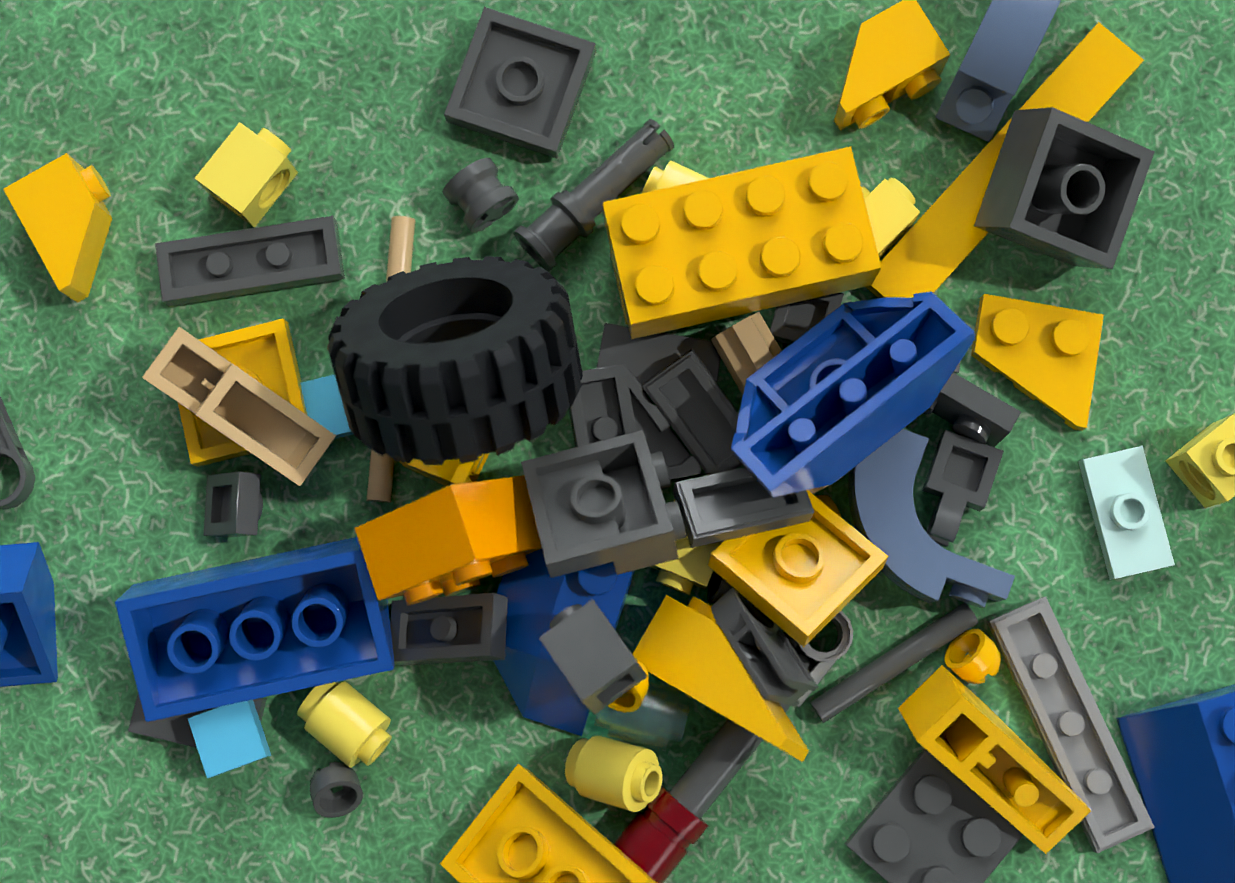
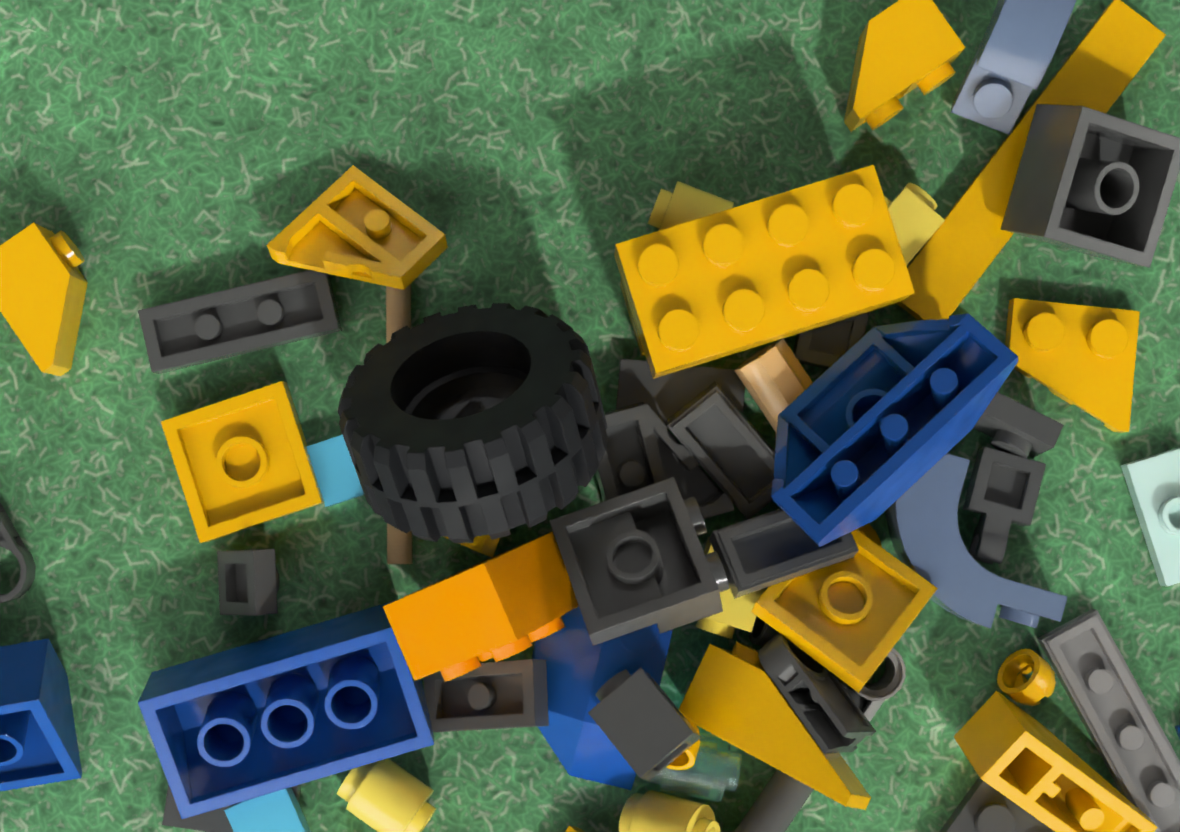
camera: 15 degrees left, 5 degrees up
(239, 406) = (244, 481): tan slope -> none
(248, 172) = (229, 225): light yellow brick -> none
(368, 188) = (360, 235): none -> yellow wing
(480, 194) = (479, 231): dark grey wheel -> none
(520, 82) = (510, 106): dark grey plate -> none
(574, 211) = (579, 242): dark grey pin -> none
(894, 662) = (946, 688): dark grey bar -> none

